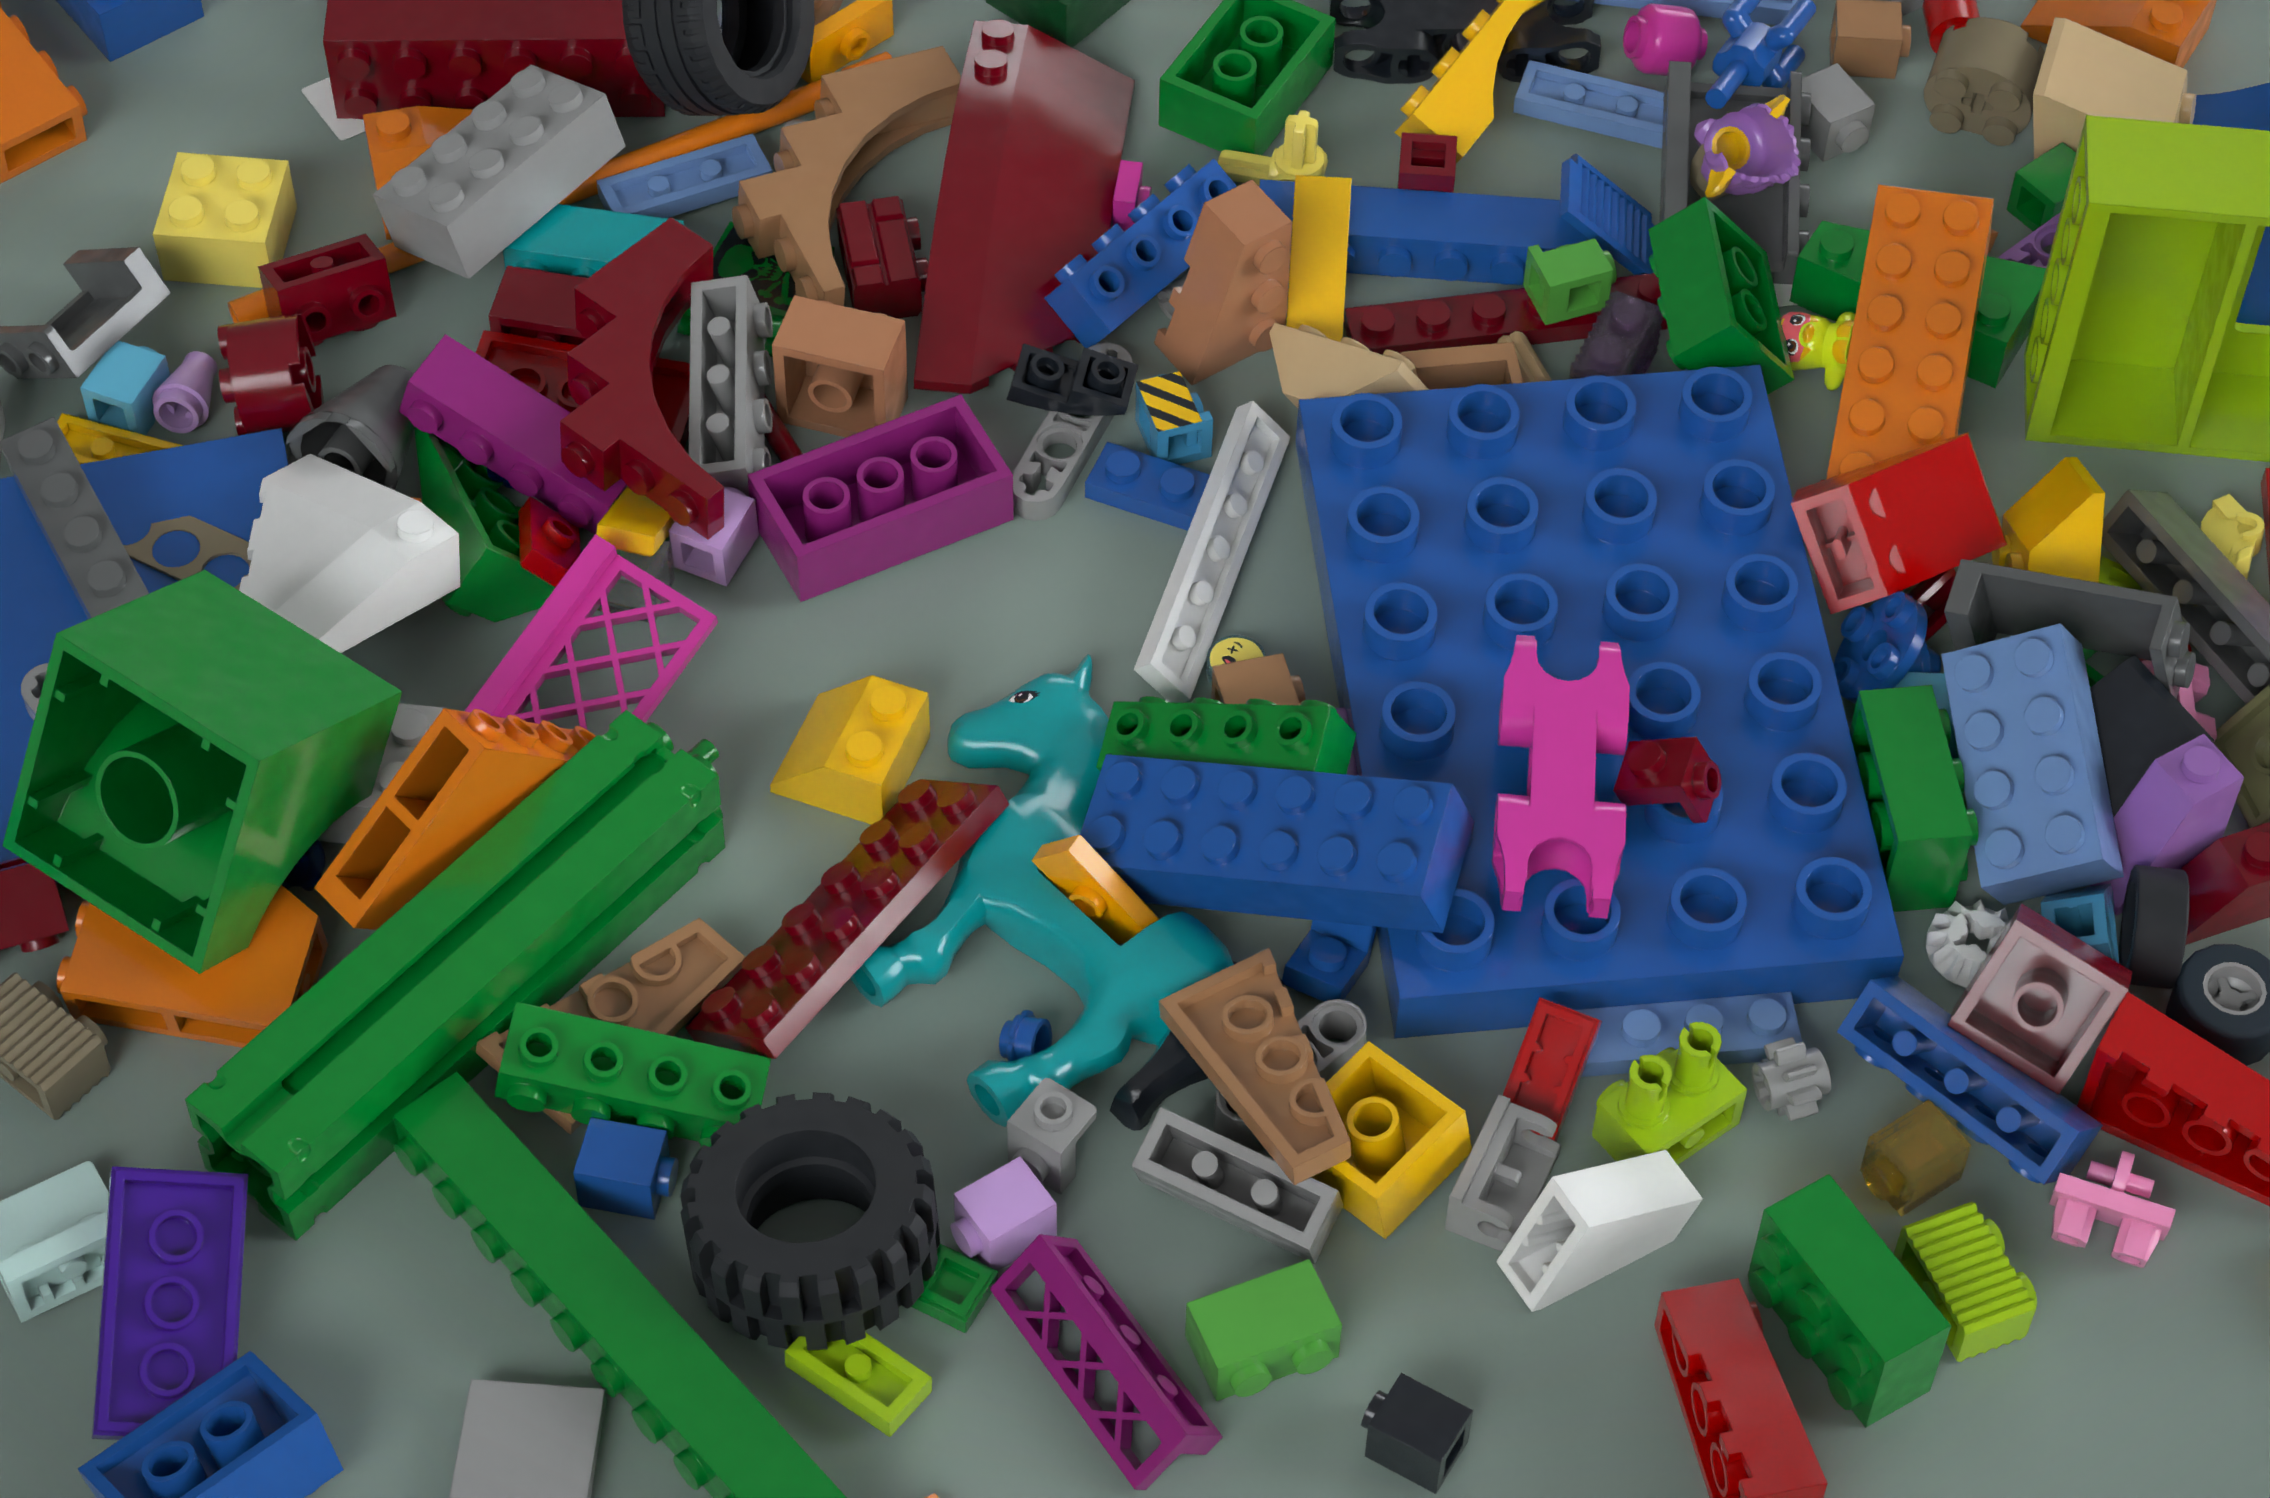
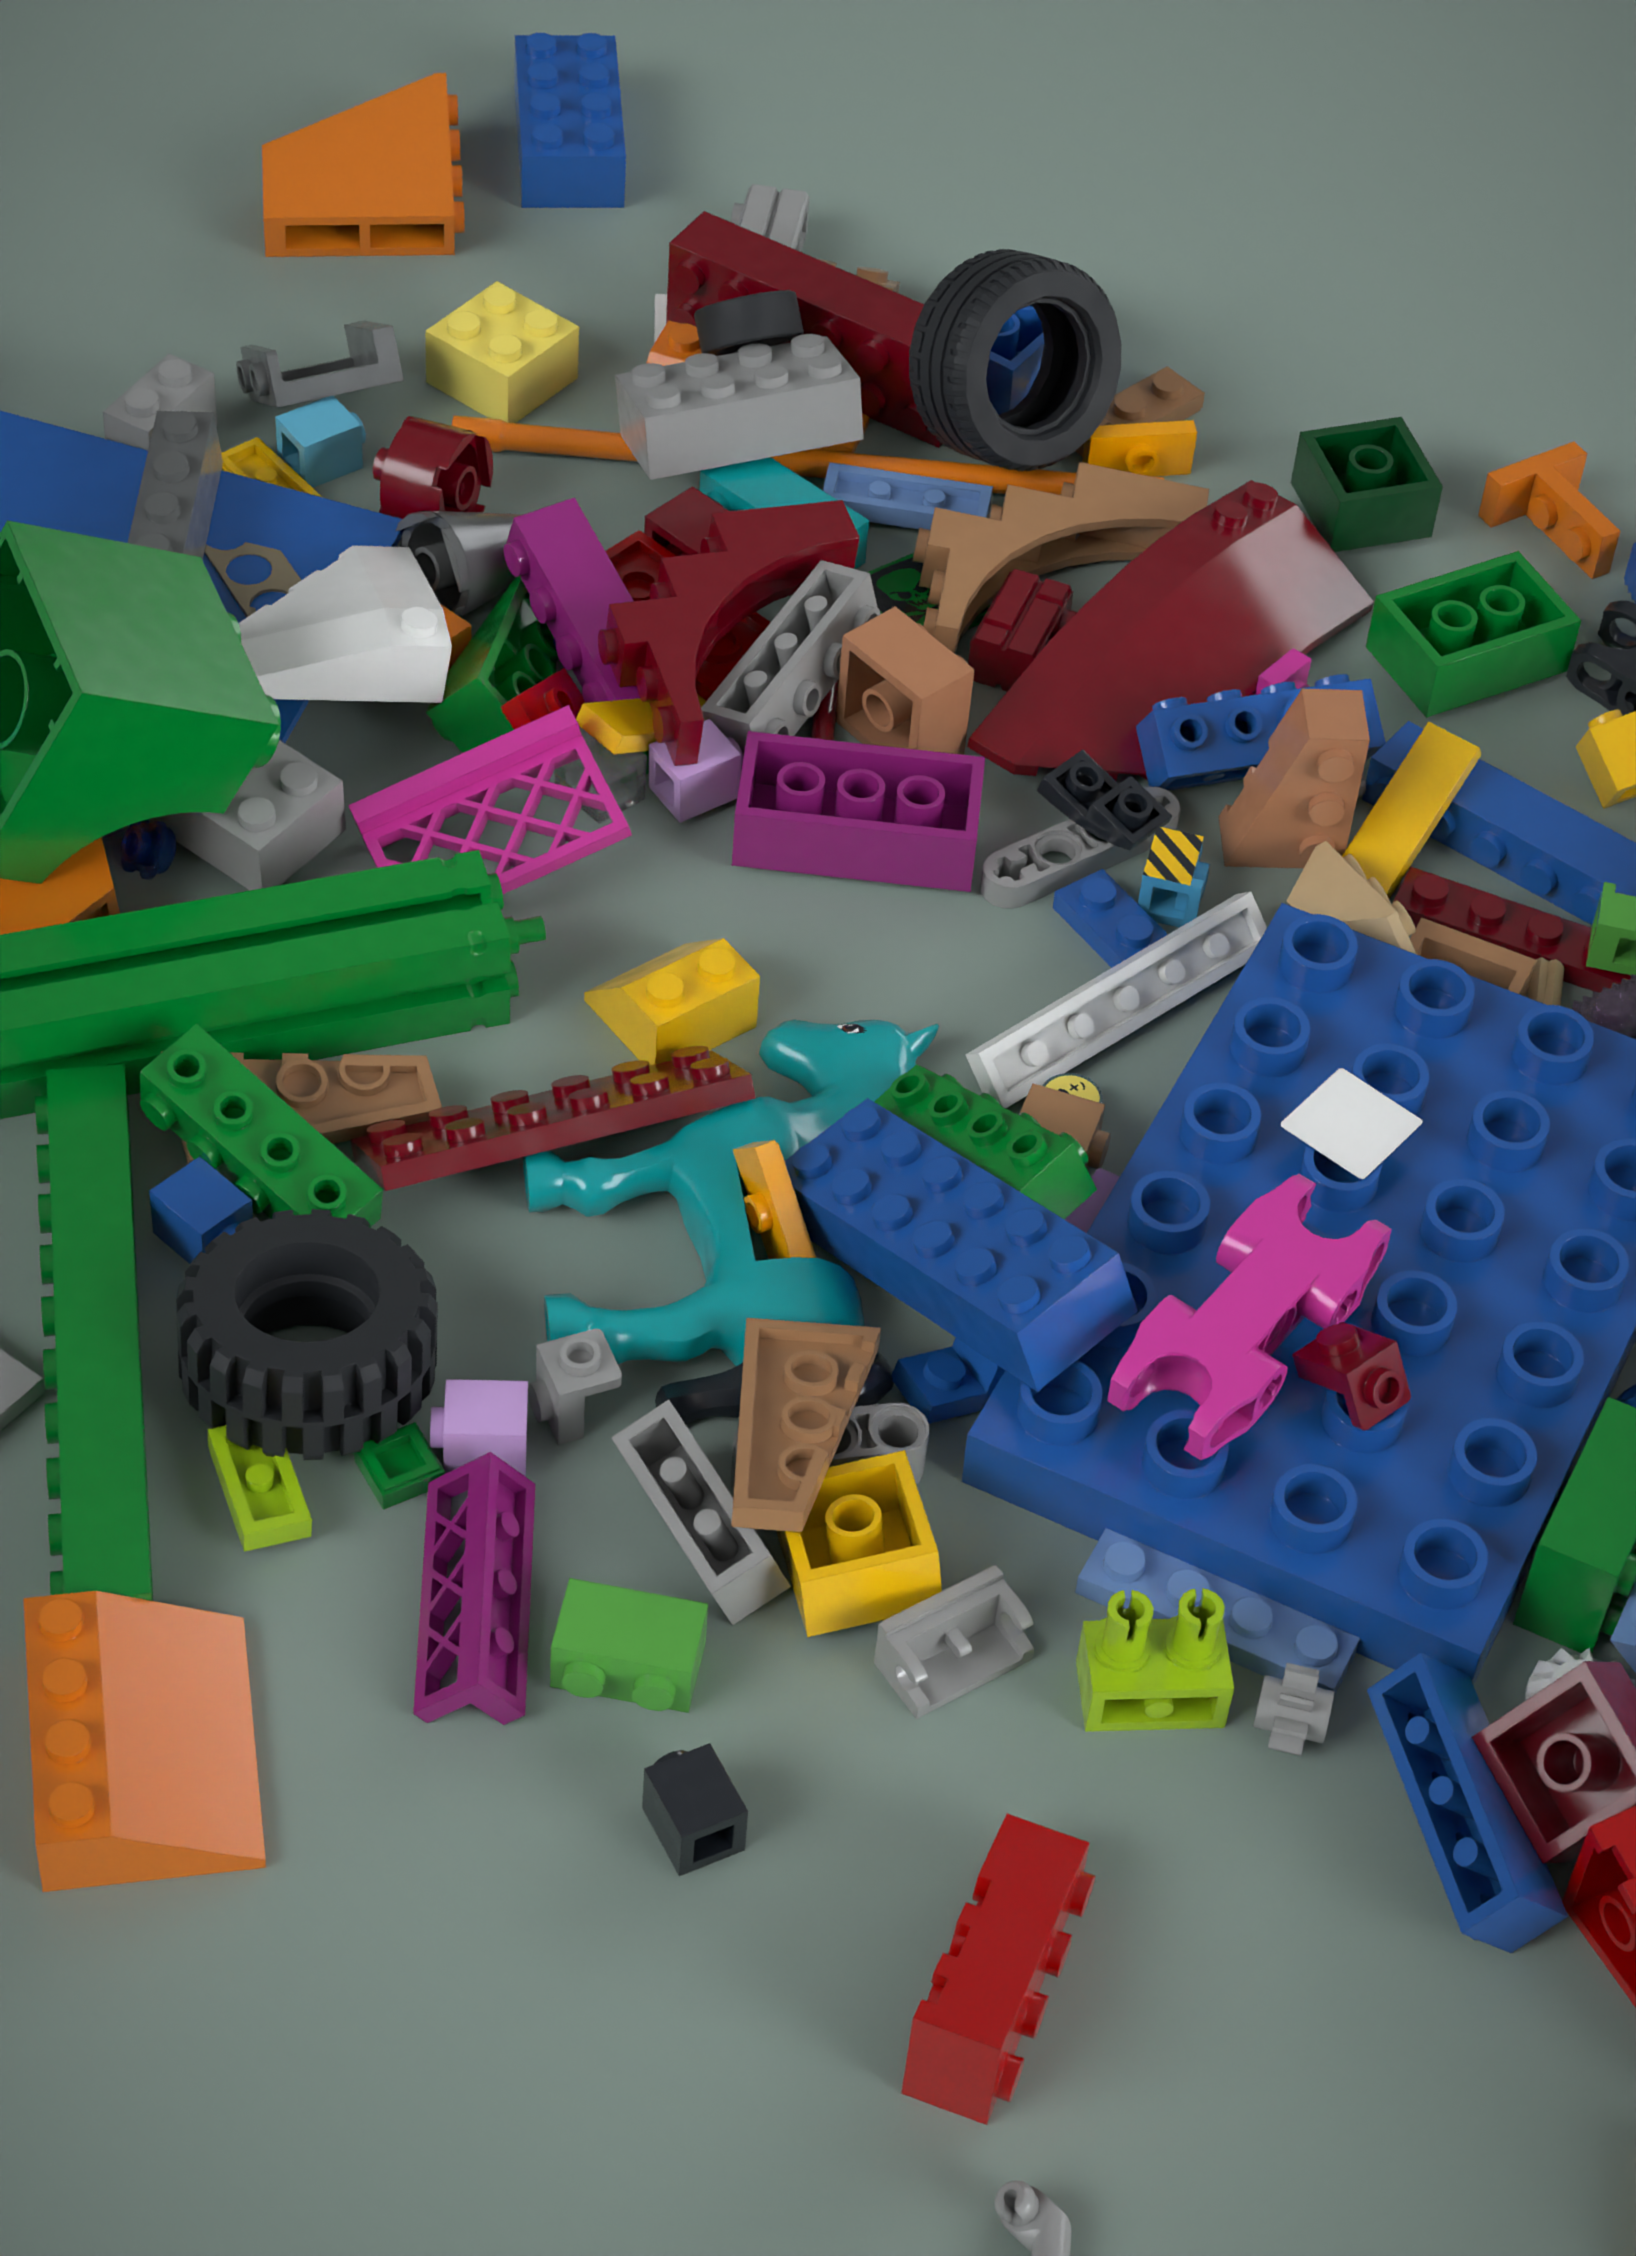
camera: 30 degrees right, 5 degrees down
(185, 395) = (351, 471): lavender cone -> none
(332, 286) = (537, 440): dark red brick -> none
(439, 804) = (267, 832): orange slope -> none
(456, 86) = (748, 319): none -> black tyre
(1024, 1036) = (626, 1293): blue plate -> none
(1295, 157) = (1460, 715): light yellow axle -> none
(1427, 162) = (1575, 778): dark red brick -> none
(1506, 566) = (1351, 1123): none -> white sticker
(1551, 1061) = (1071, 1570): red plate -> none
(1596, 1224) = (1004, 1727): white slope -> none
(1847, 1301) = (1175, 1921): green brick -> none
(1914, 1158) = (1358, 1844): clear yellow brick -> none
(1968, 1278) = (1322, 1979): lime brick -> none
(2139, 1220) = (1538, 2025): bright pink hips -> none

